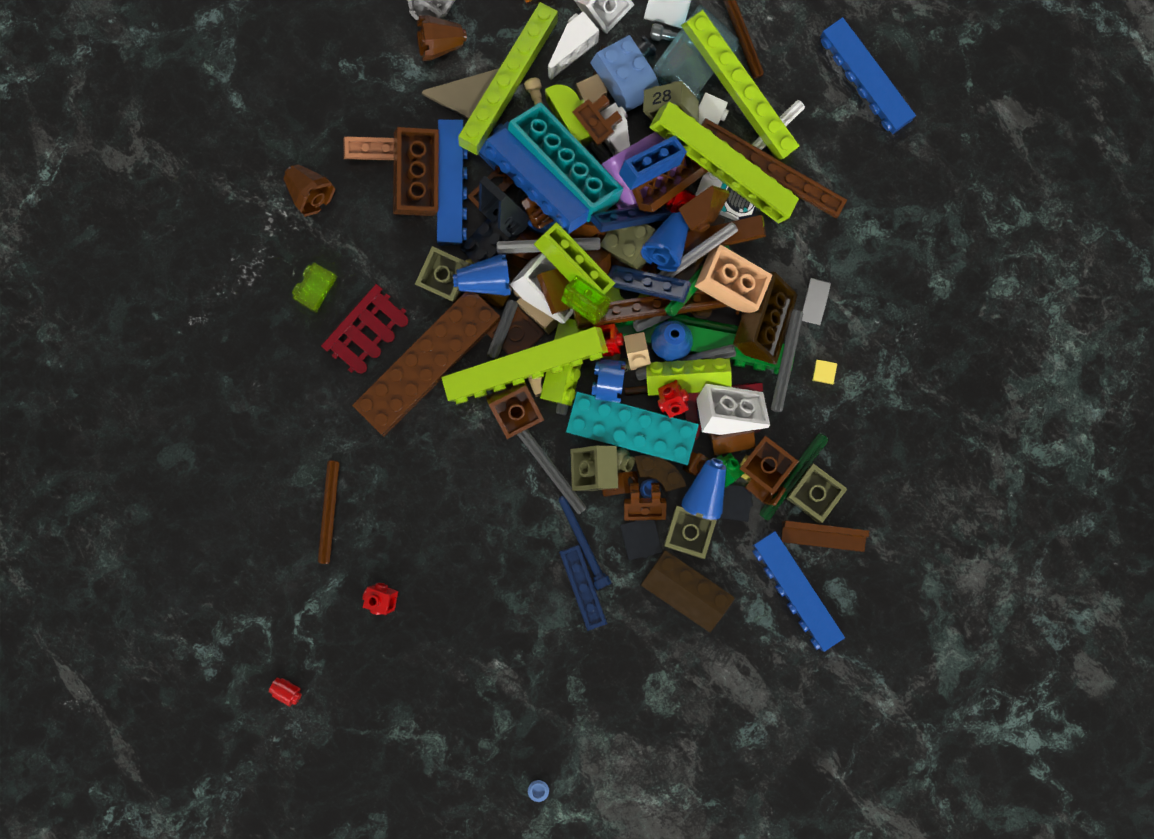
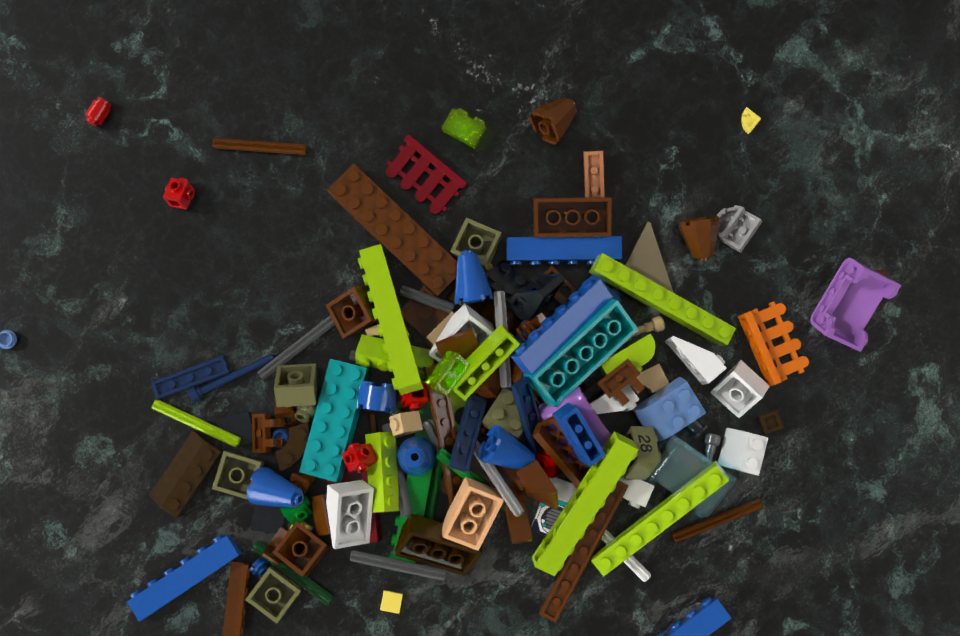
camera: 90 degrees right, 0 degrees up
(633, 580) = (196, 423): none -> lime axle
(788, 511) = (259, 567): none -> blue plate
(815, 301) = (458, 592): light grey slope -> none

